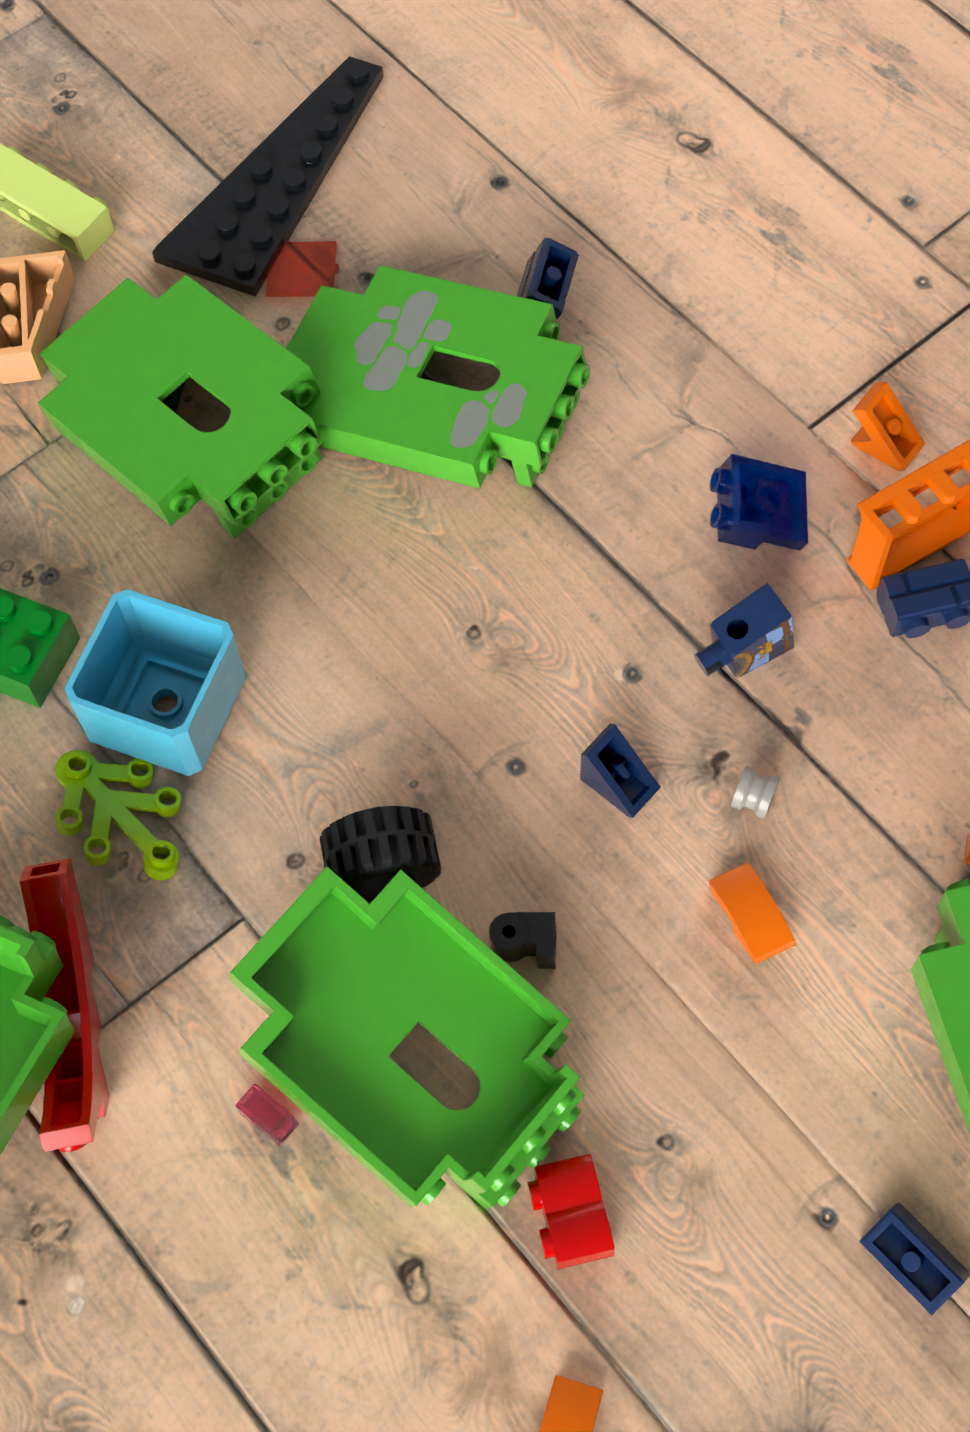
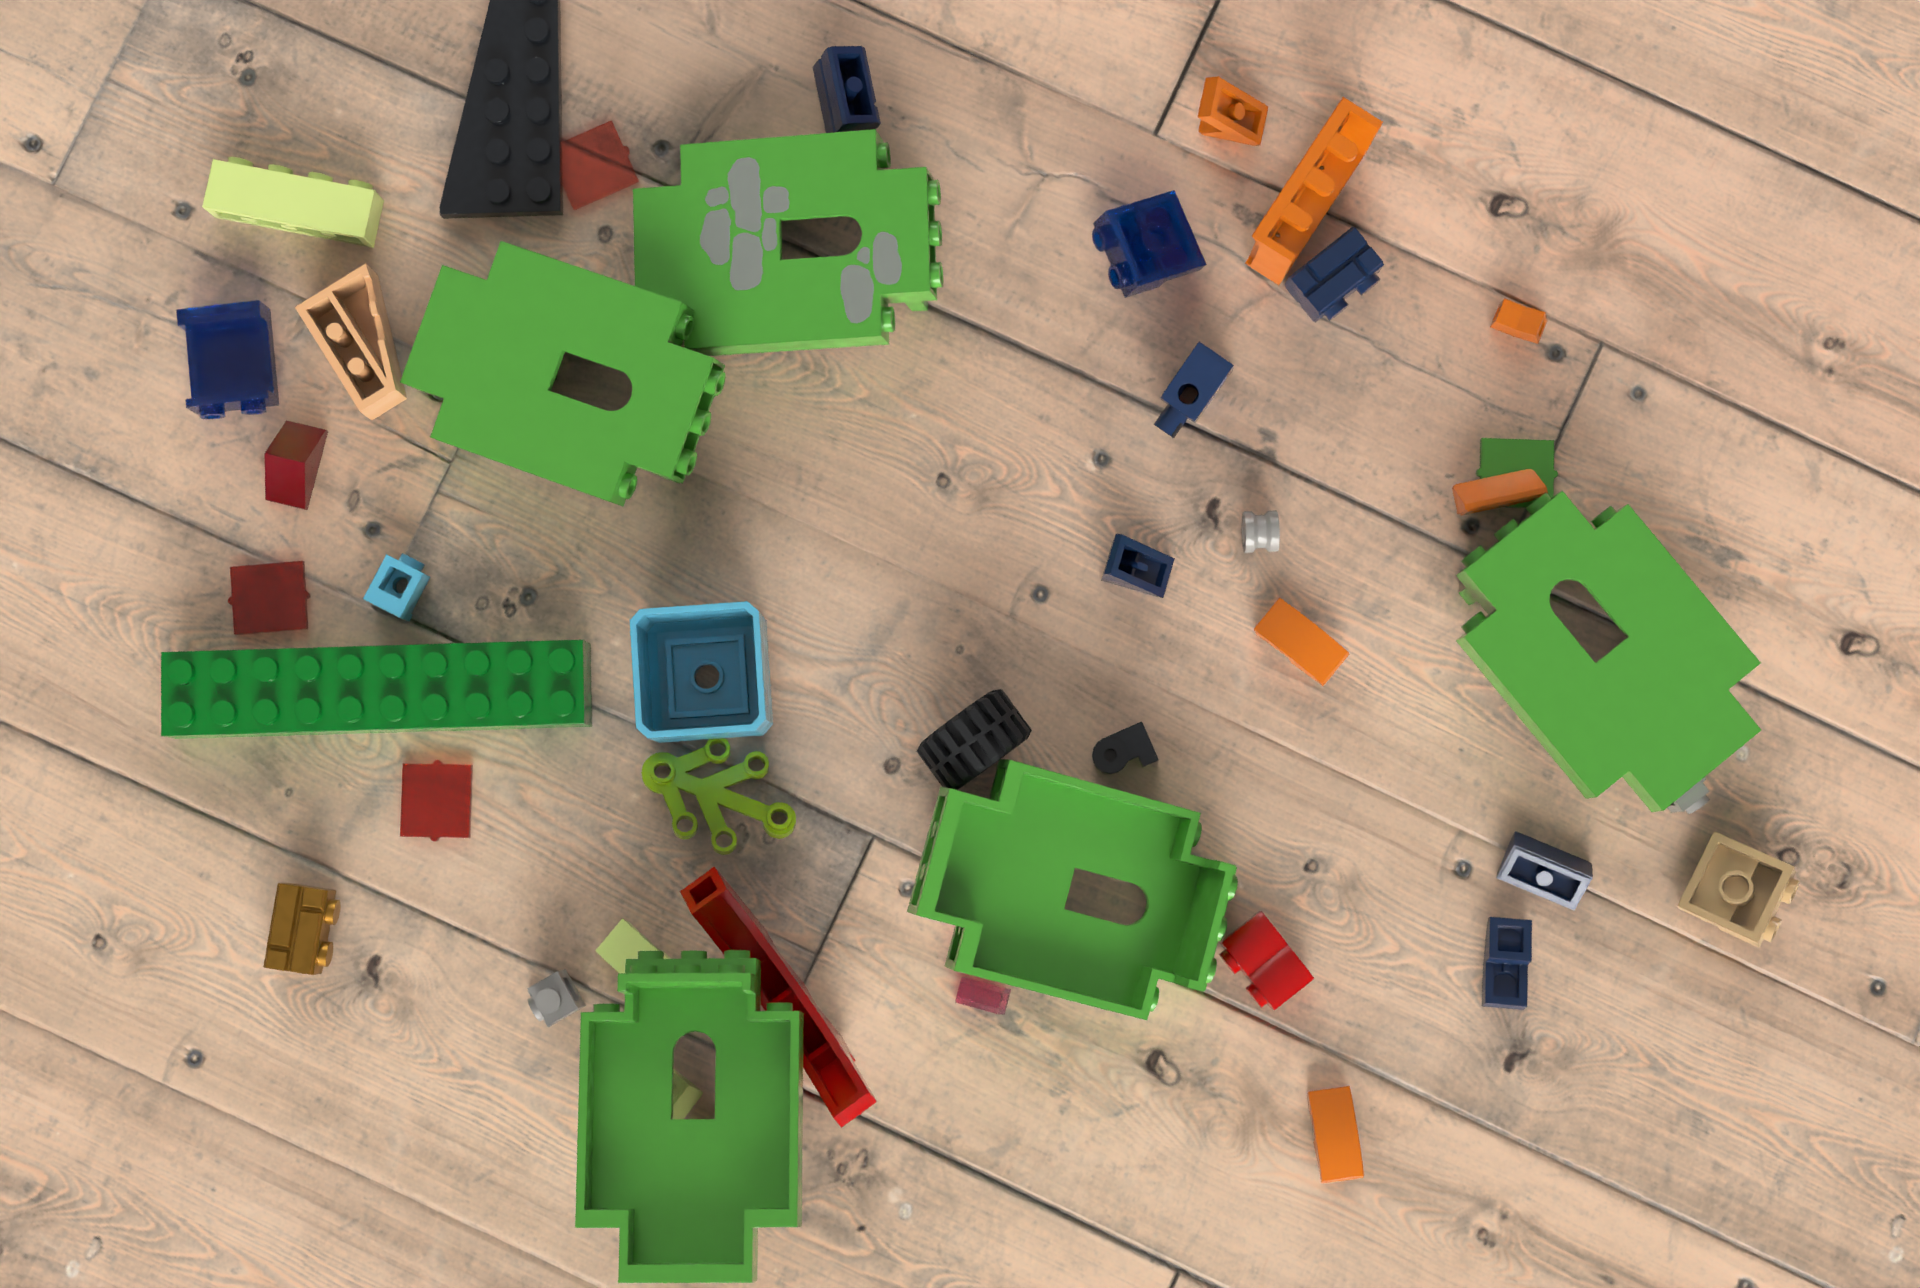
camera: 25 degrees left, 20 degrees up
(833, 1337) = (1506, 963): none -> dark blue slope

